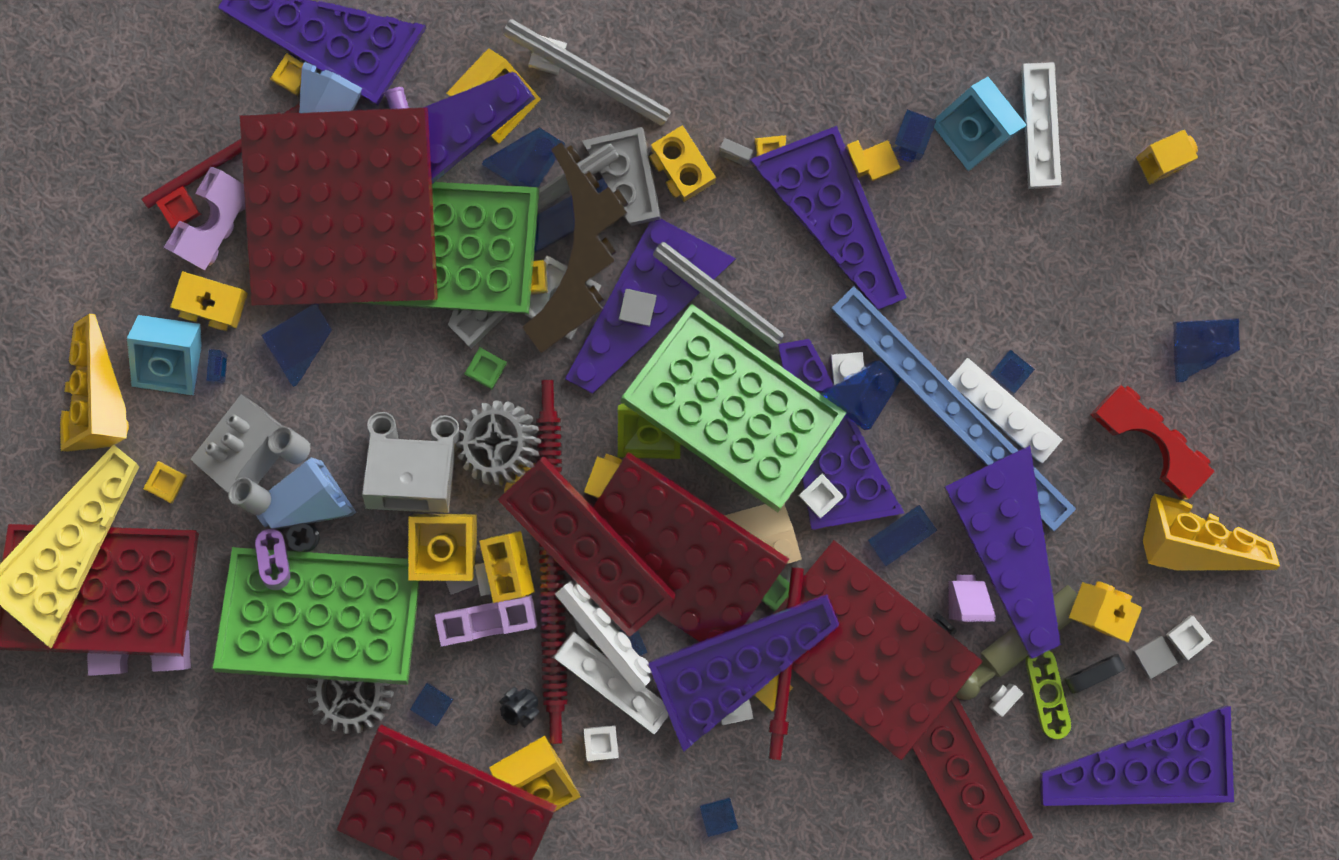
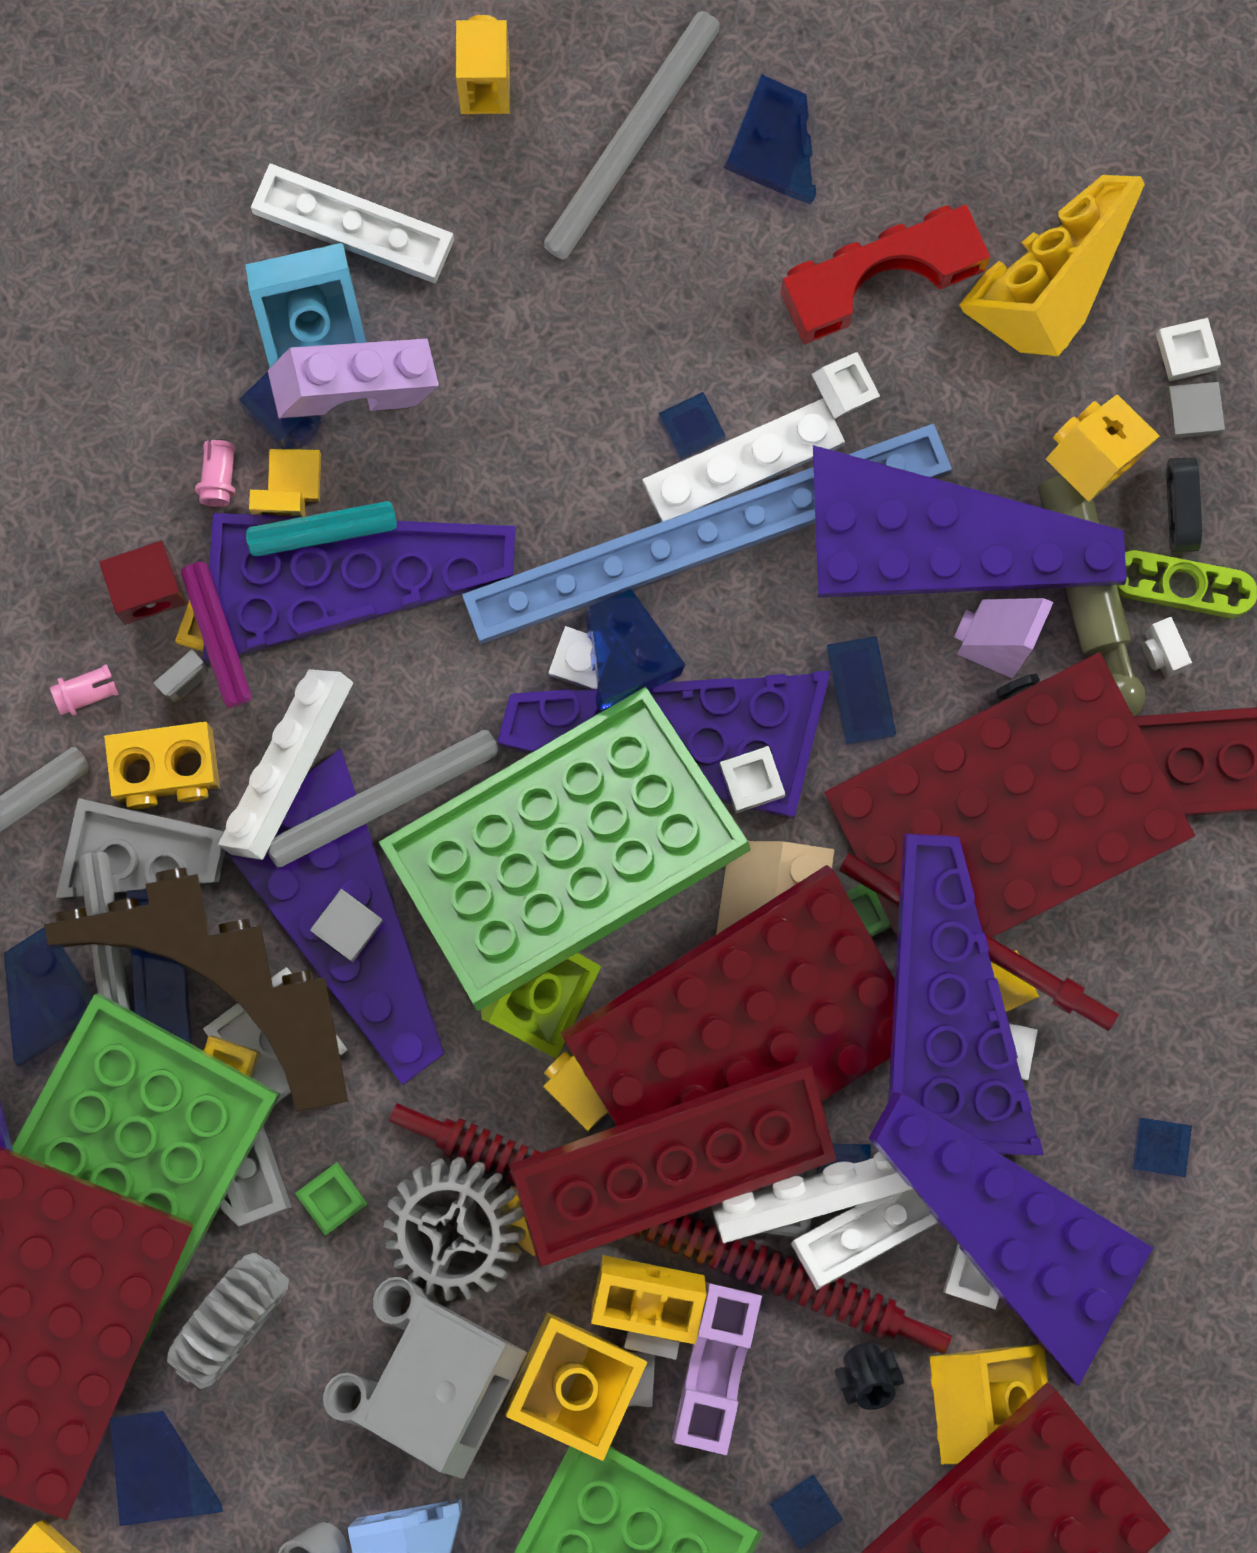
camera: 65 degrees left, 5 degrees down
(394, 342) = (227, 1320): none -> light grey gear
(631, 767) = (1031, 1242): none -> dark purple wing
(702, 100) = (80, 692): none -> bright pink pin
(712, 232) = (285, 763): none -> white plate
(767, 159) = (216, 634): none -> magenta axle
(778, 105) = (142, 582): none -> dark red piece
(854, 190) = (321, 528): none -> teal axle
(860, 117) = (217, 471): none -> bright pink pin
(958, 180) = (384, 372): none -> lavender arch
(1075, 448) = (845, 385): none -> white plate
(1169, 260) = (631, 135): none -> light grey axle

